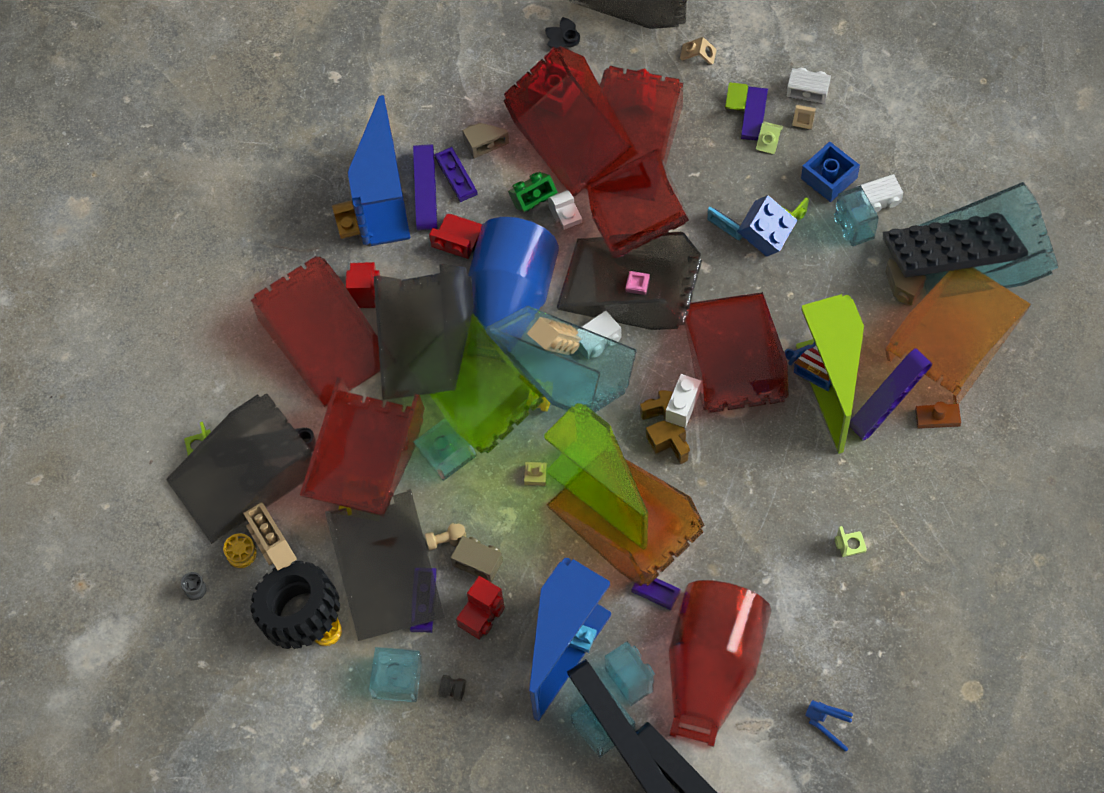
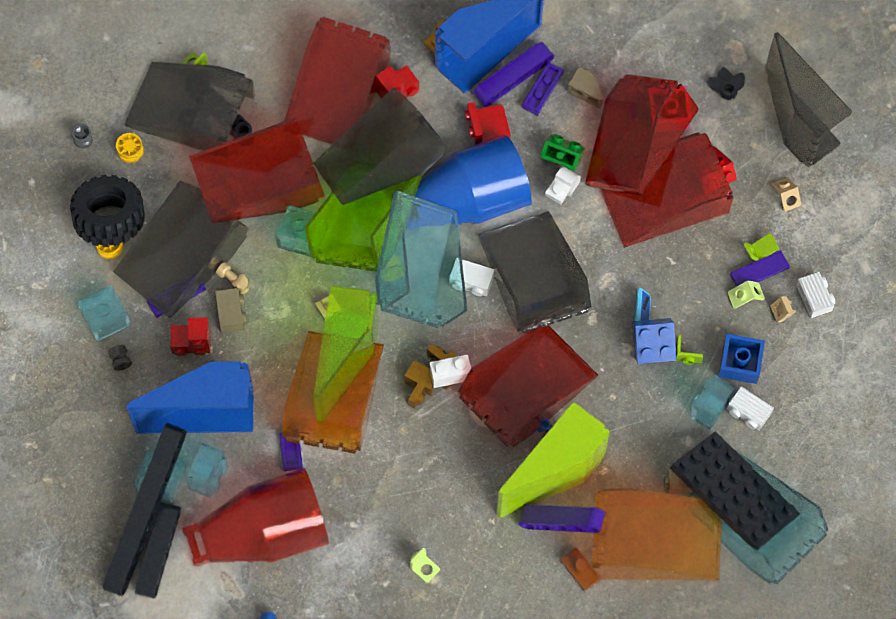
camera: 50 degrees right, 5 degrees up
(268, 537) = (144, 158): tan brick -> none
(555, 336) = (428, 243): tan brick -> none
(584, 638) = (217, 421): medium azure tile -> none
(636, 204) = (591, 229): clear red windscreen -> none
(637, 283) = (539, 278): bright pink tile -> none

